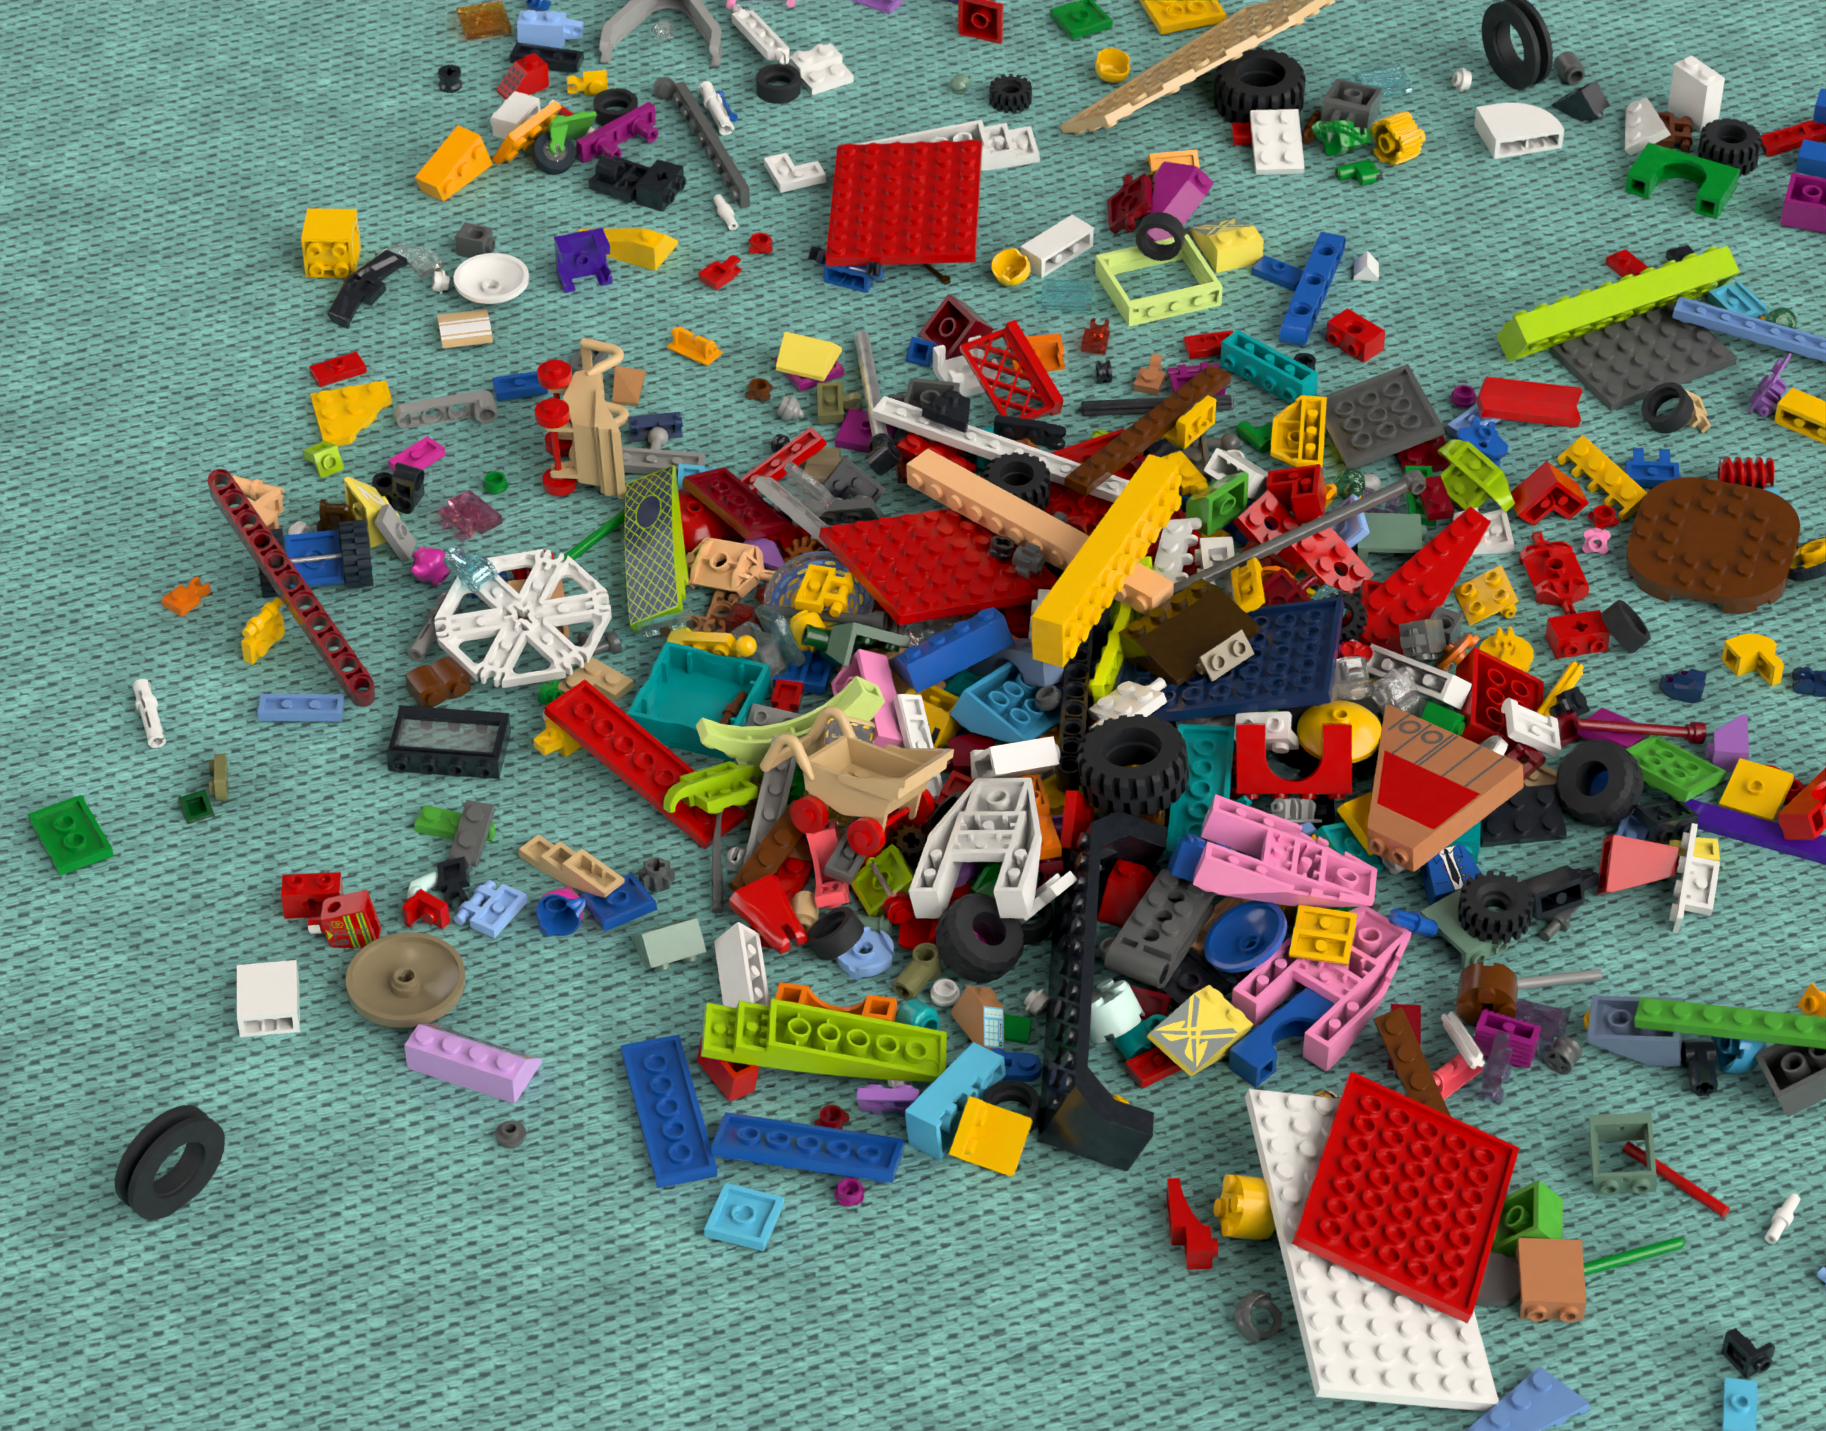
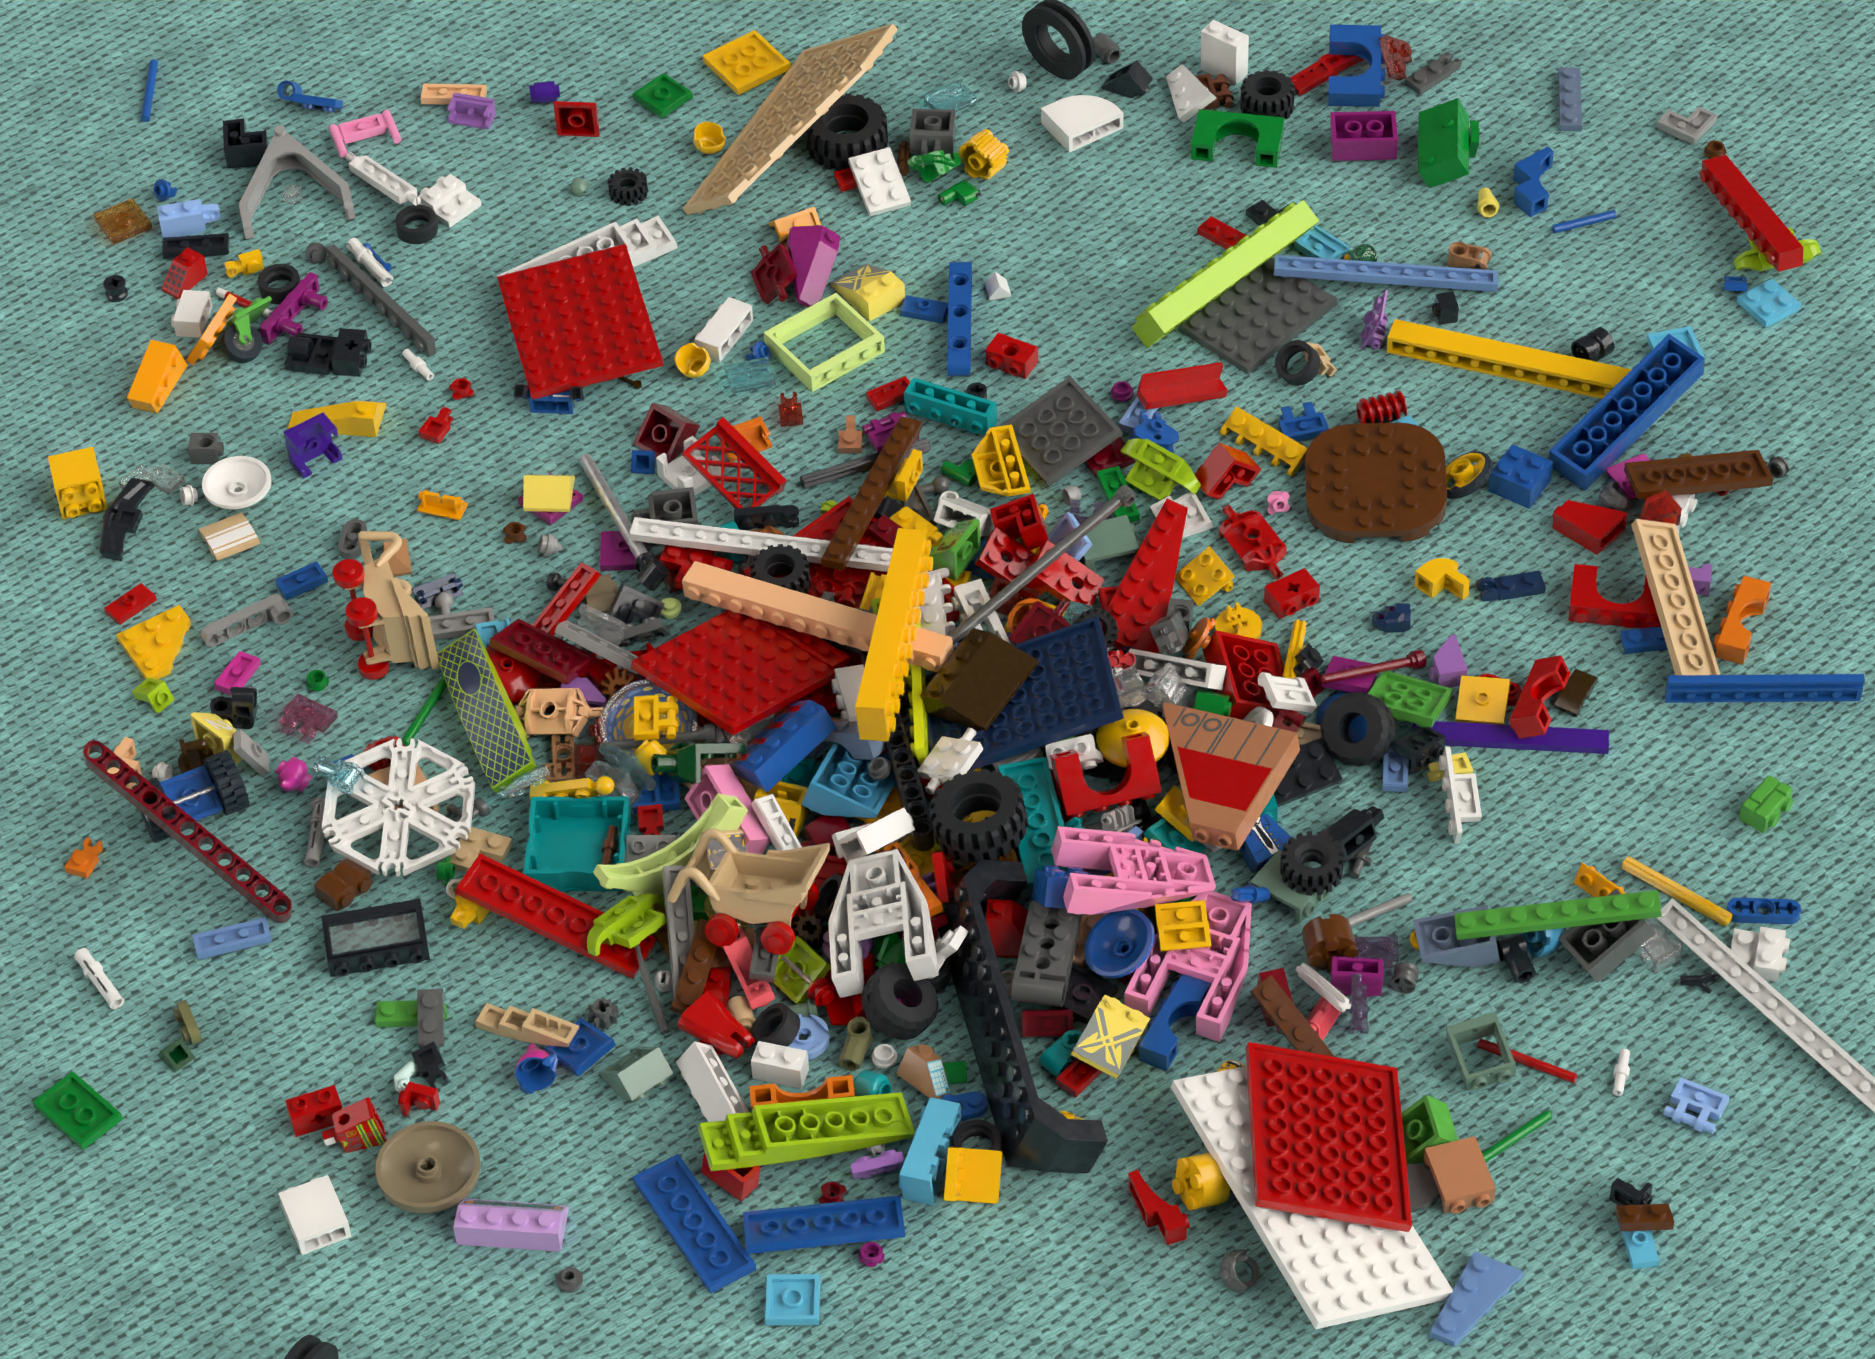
camera: 15 degrees left, 5 degrees up
(255, 488) = (107, 738): light nougat pin -> none
(262, 631) = (171, 876): yellow plate -> none
(496, 913) = (478, 1084): light blue plate -> none
(791, 177) = (463, 316): white plate -> none
(826, 972) = (780, 1064): none -> white brick
(832, 402) = (585, 530): olive plate -> none
(893, 497) = (671, 608): none -> yellowish green plate
(949, 410) = (697, 517): black wing -> none
(1001, 547) = (789, 638): black bush -> none
(1028, 560) = (819, 645): dark grey gear -> none
(1036, 1002) = (963, 1044): white plate -> none
(1086, 272) = (759, 350): none -> blue plate
(1103, 371) = (808, 442): black bush -> none
(1113, 1010) = (1036, 1034): light aqua brick -> none
(1159, 251) = (819, 315): black tyre -> none
(1225, 656) = (1019, 695): hinge -> none
(1248, 585) = (1013, 623): yellow plate -> none
(1349, 482) = (1057, 501): clear green animal -> none
(1436, 500) = (1142, 503): dark red plate -> none
(1603, 517) = (1276, 478): red plate -> none
(1625, 626) = (1330, 577): black tyre -> none
(1634, 863) = (1407, 793): slope -> none
(1754, 1380) = (1644, 1217): none -> reddish brown plate

